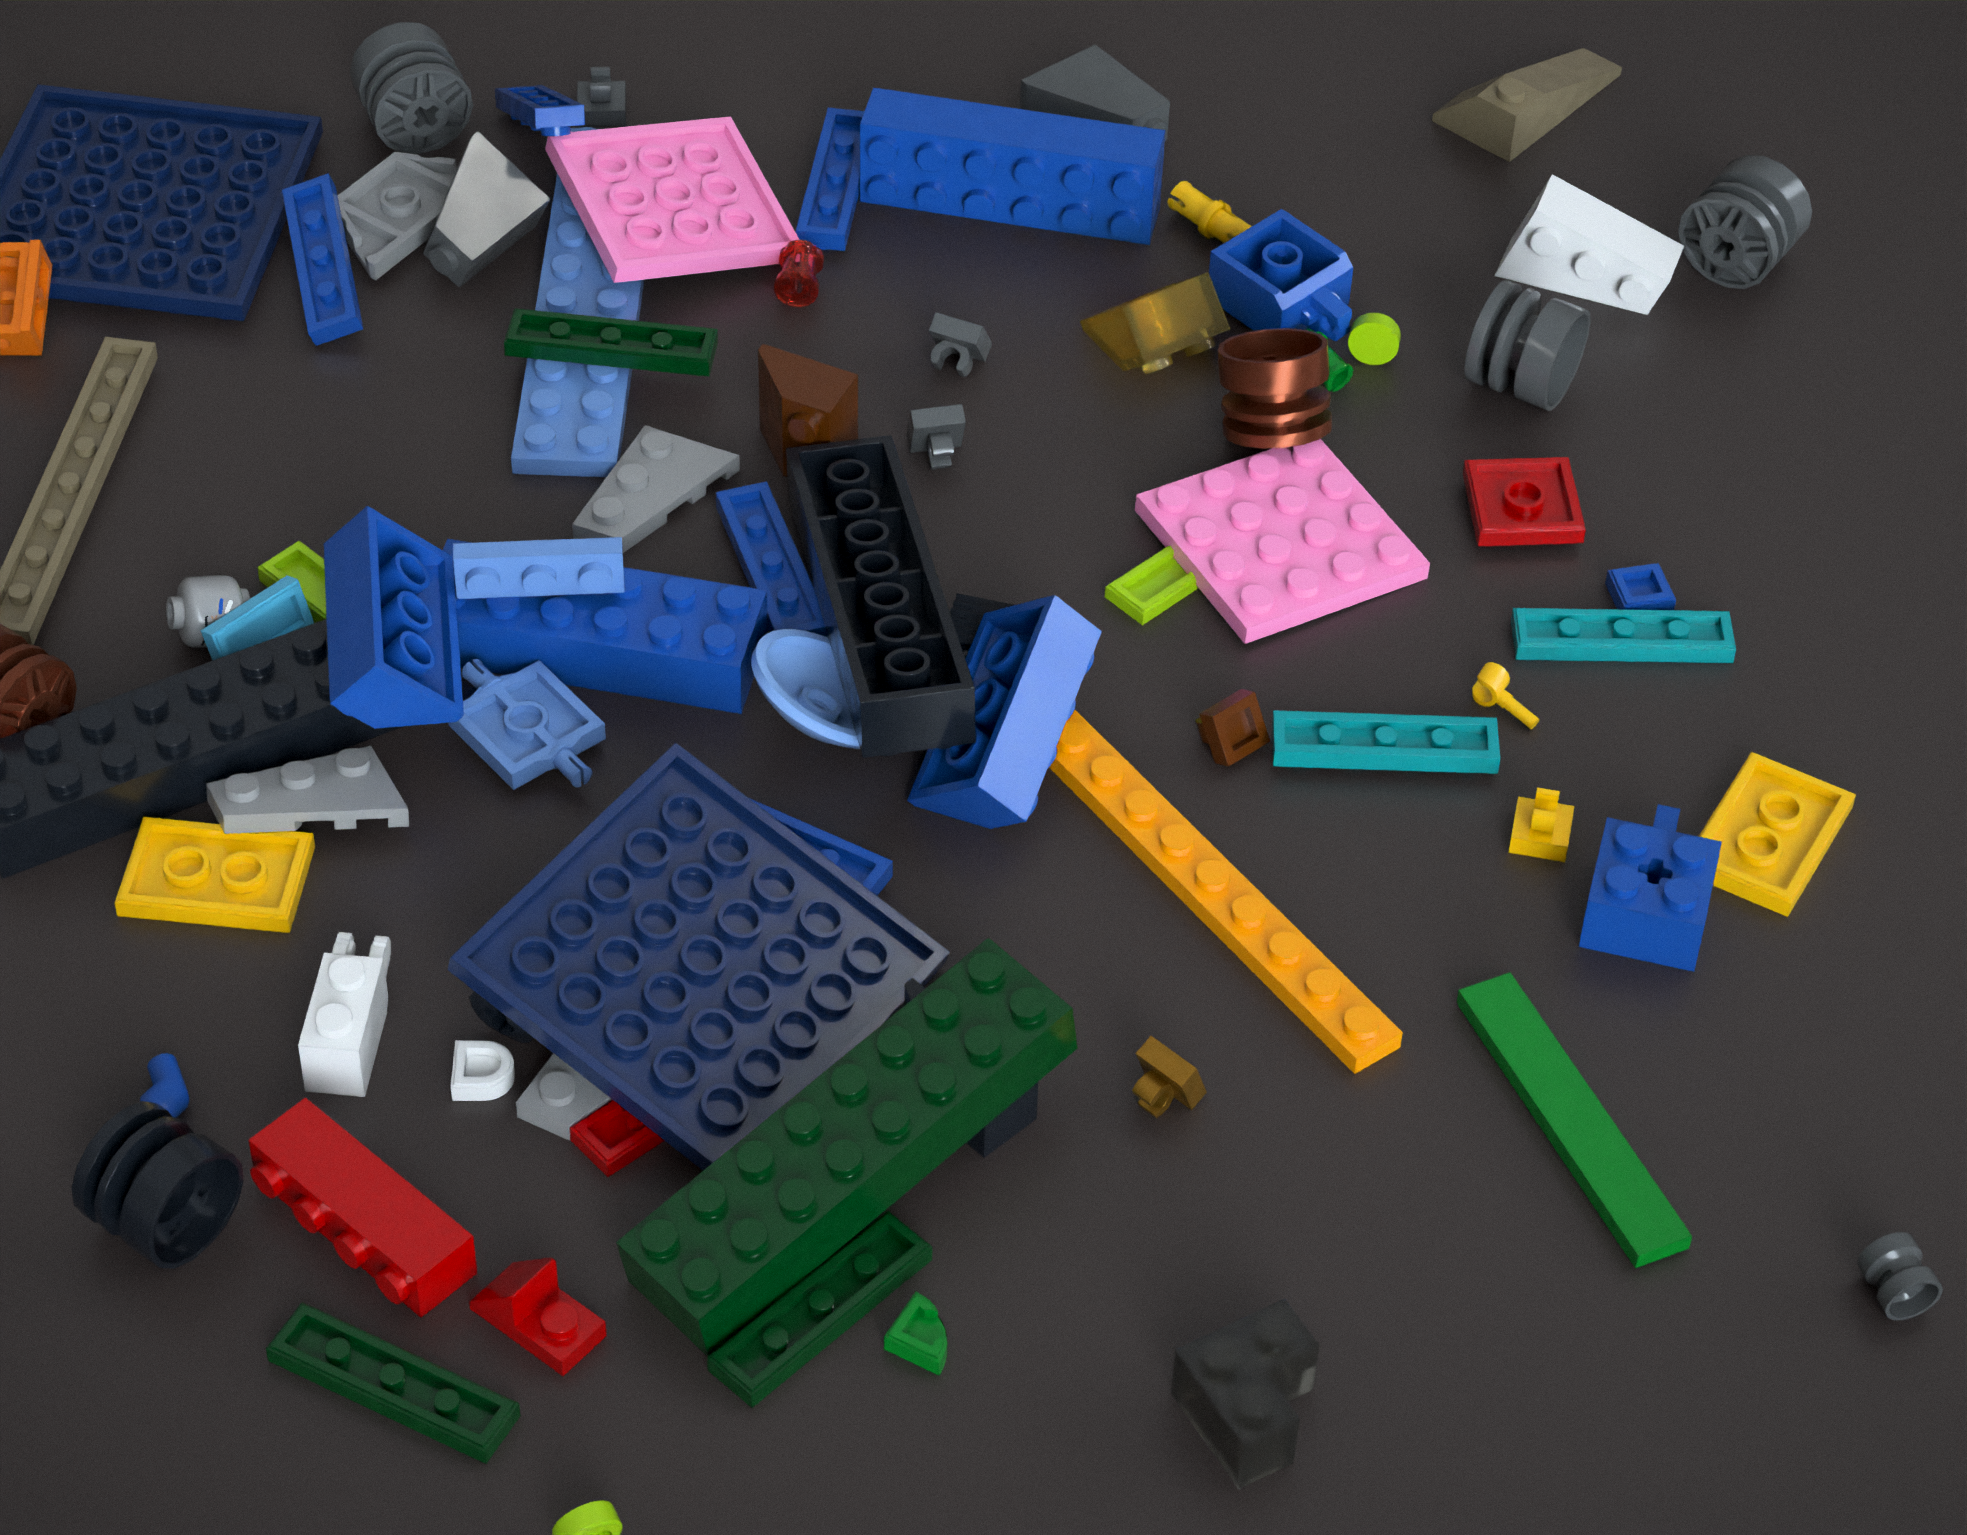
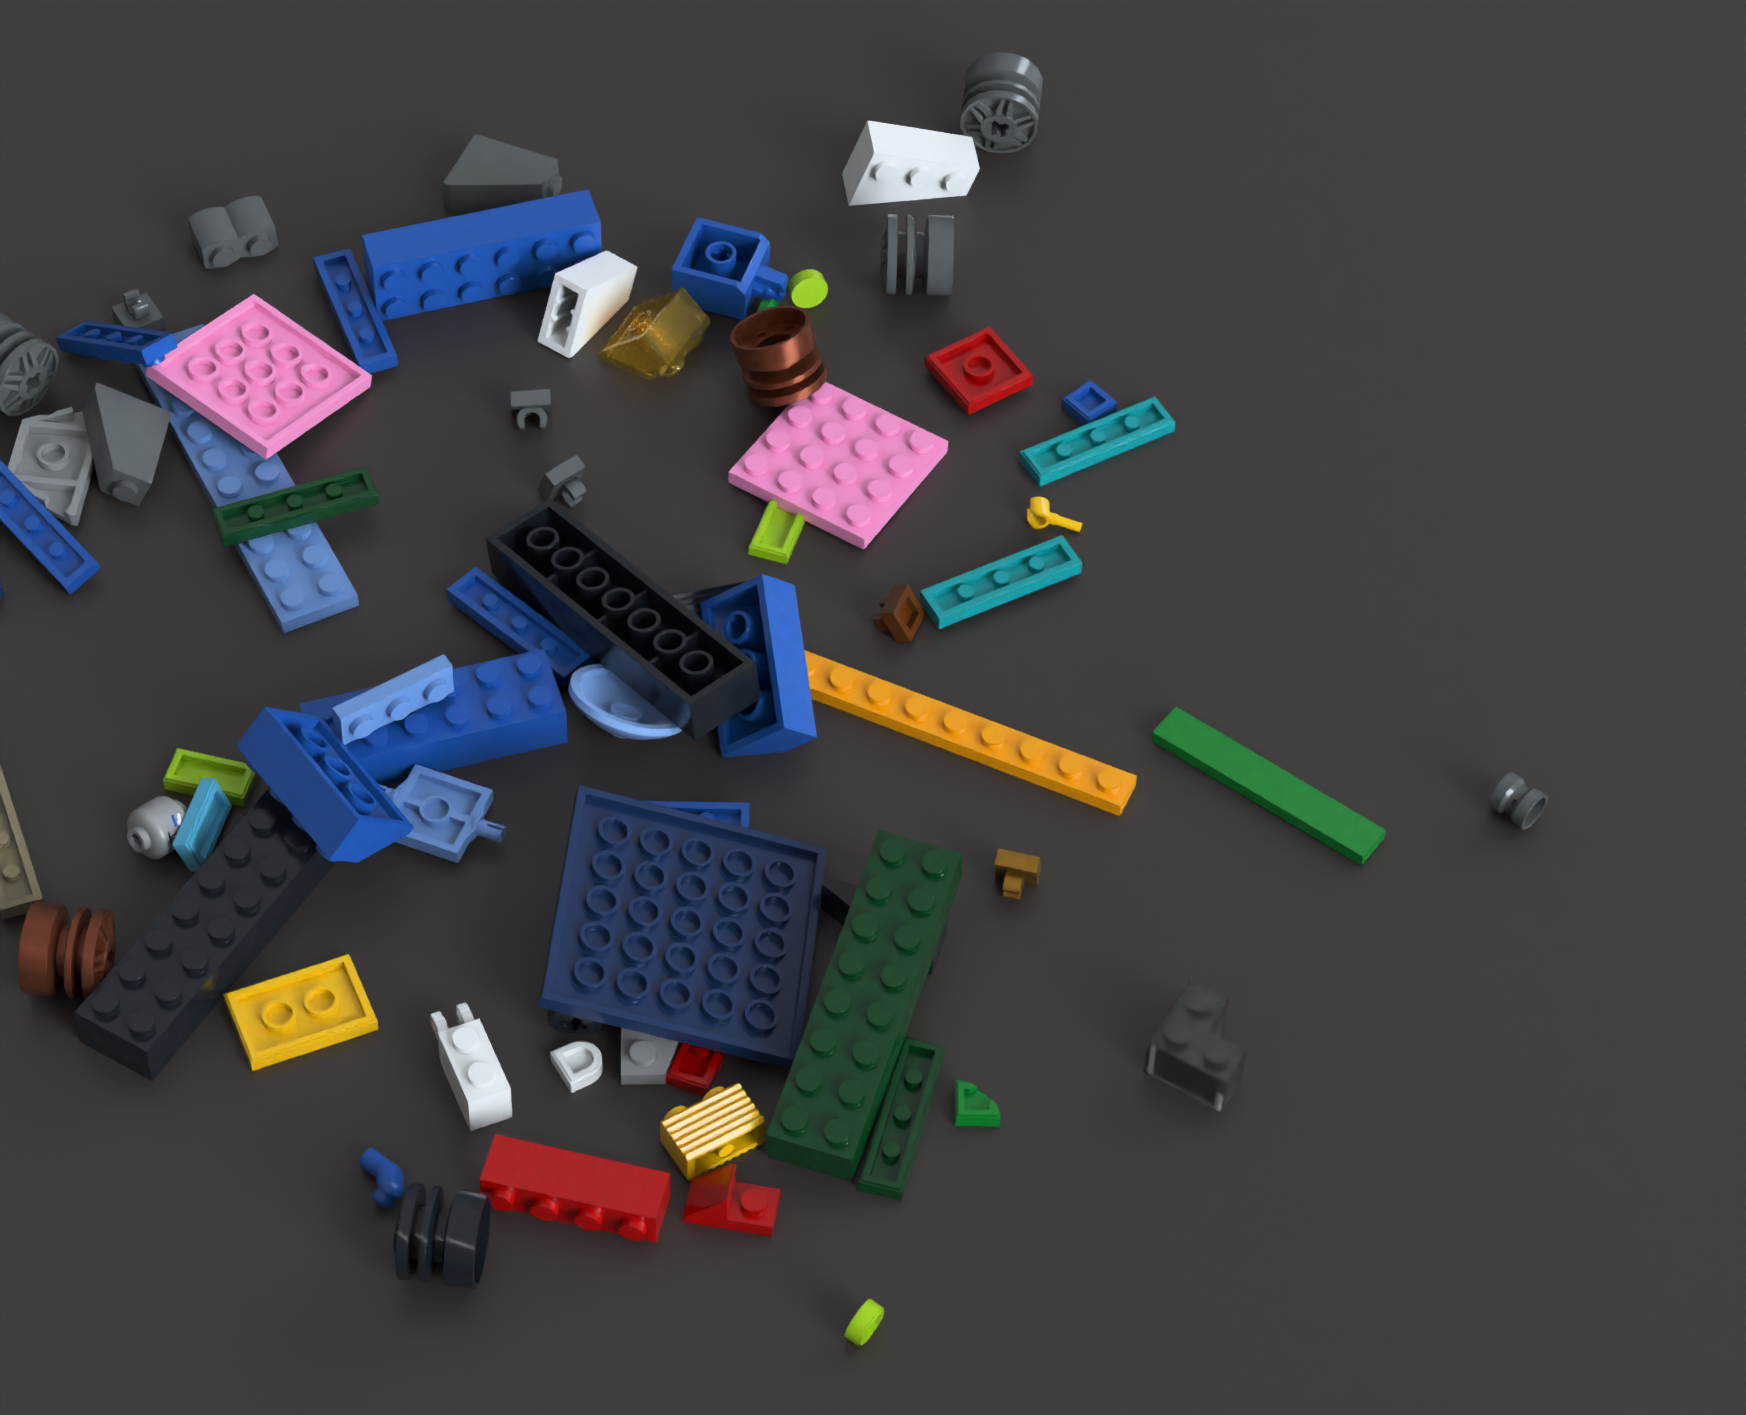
camera: 30 degrees left, 5 degrees up
(319, 789) = (329, 923): light grey wing -> none
(393, 1382) = (672, 1290): dark green tile -> none
(569, 1212) = (712, 1130): none -> yellow brick
(649, 483) = (390, 602): light grey wing -> none
(762, 54) = (233, 232): none -> dark grey brick
(788, 279) = (385, 396): clear red bush -> none
(804, 402) = (469, 503): reddish brown slope -> none
(1098, 255) = (584, 301): none -> white slope
(1210, 216) = (639, 238): yellow pin -> none
(1526, 103) = (787, 61): dark tan wedge -> none
(1542, 826) = (1131, 598): yellow tile -> none
(1650, 891) = (1229, 614): blue hinge -> none
(1774, 831) = (1269, 542): yellow tile -> none

